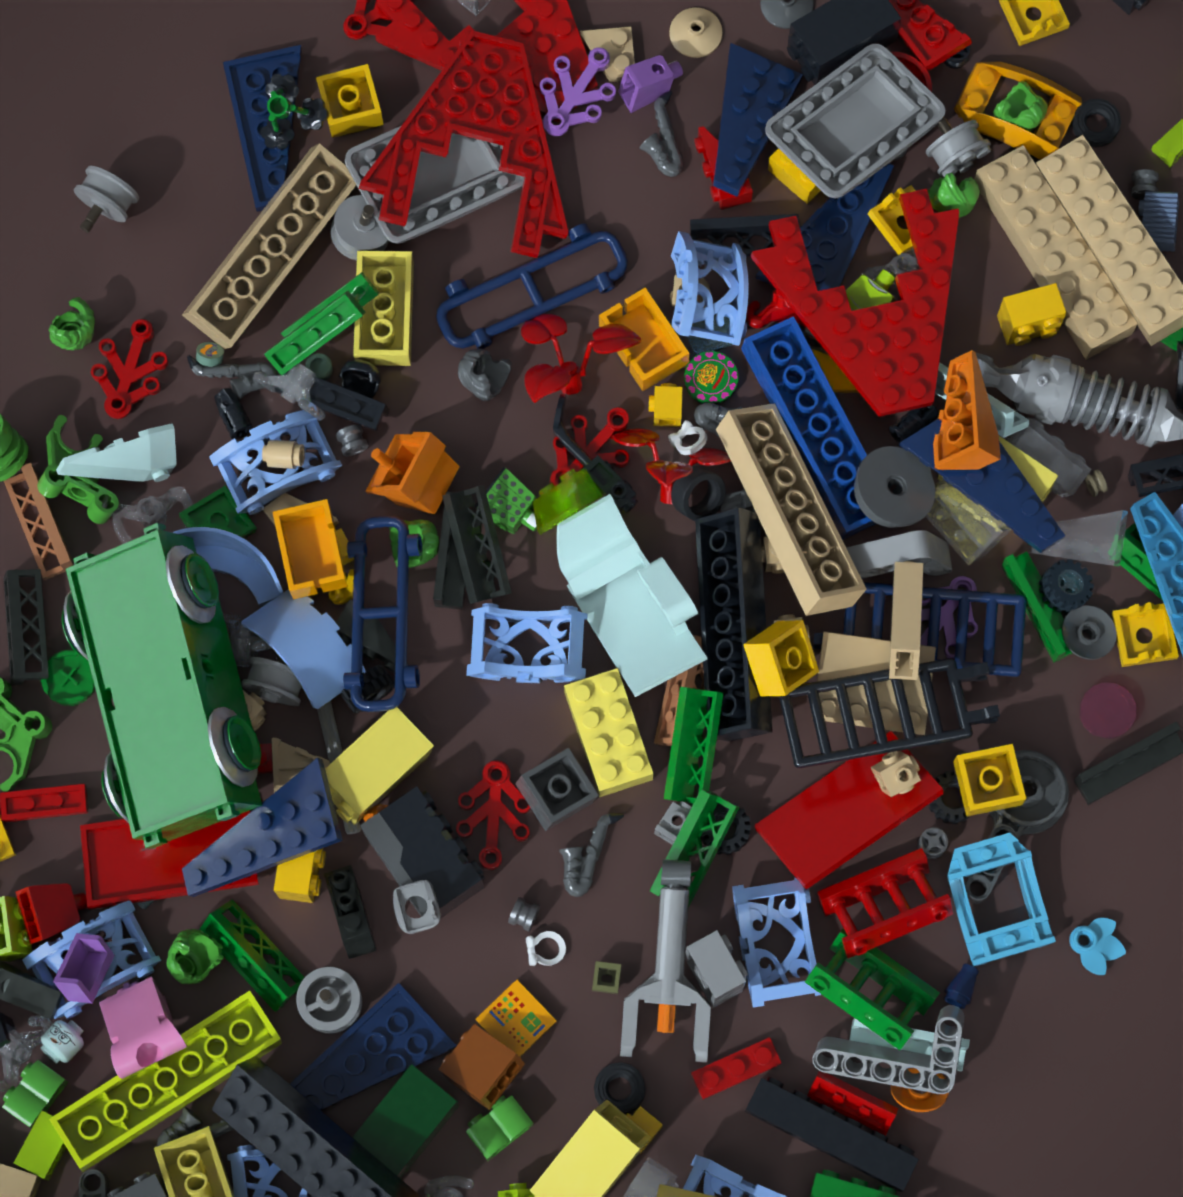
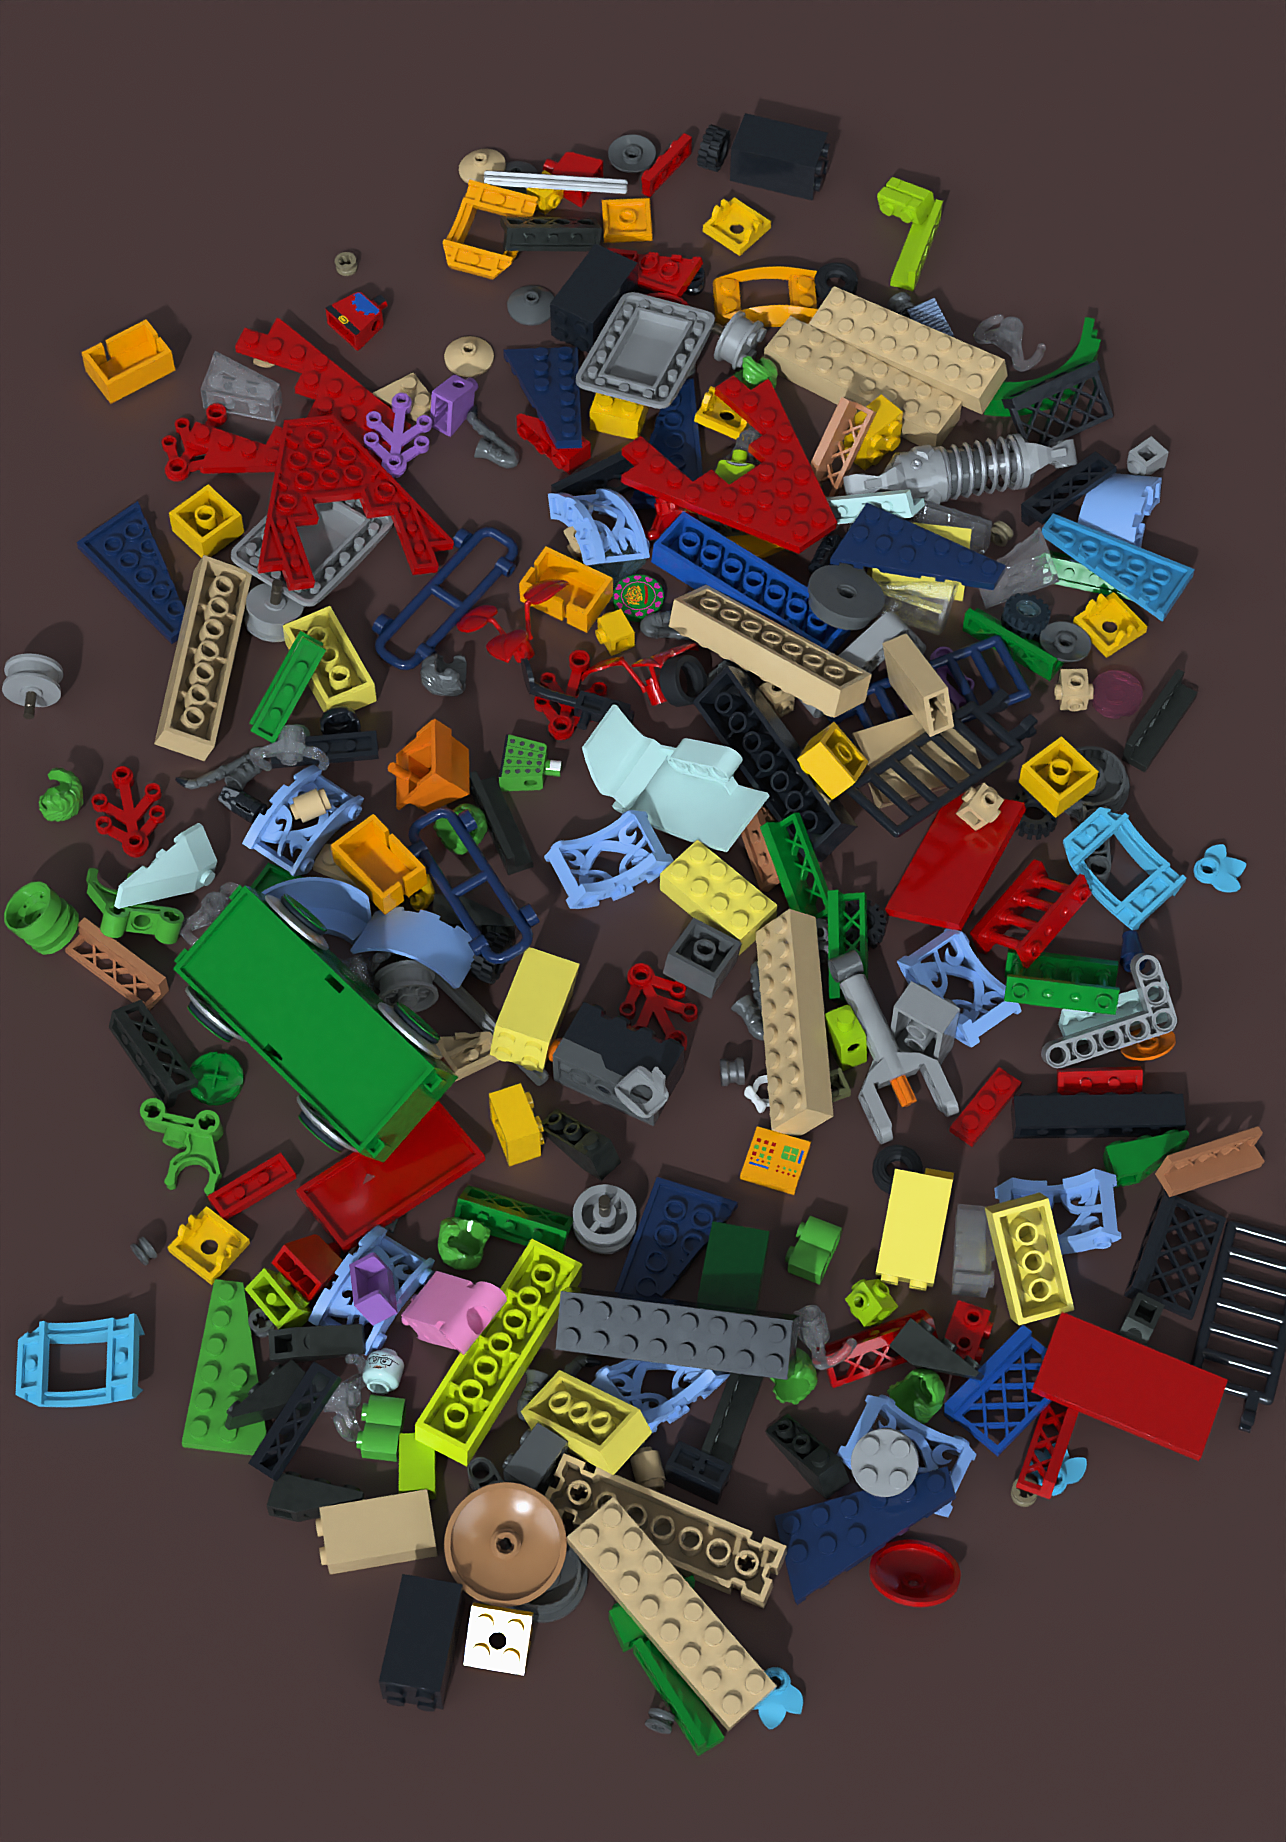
camera: 30 degrees left, 15 degrees down
(209, 354) = (195, 767): sand green tile -> none
(282, 94) = (153, 537): black plant -> none
(285, 827) = (487, 1086): dark blue wing -> none
(352, 440) = (360, 777): flat silver wheel -> none
(473, 545) = (513, 806): pearl dark grey fence -> none
(481, 1066) = (771, 1202): dark orange brick -> none
(565, 499) = (573, 733): clear neon green slope -> none
(601, 900) = (794, 1024): none -> tan brick
(642, 936) = (844, 1032): none -> lime torso
(688, 429) = (642, 643): white piece -> none
(935, 838) = (1042, 850): flat silver wheel -> none
(968, 428) = (878, 517): orange wedge -> none
(980, 311) = (832, 442): none -> nougat fence
(1022, 107) = (771, 291): bright green hair -> none
(1067, 680) = (1073, 689): none -> tan brick

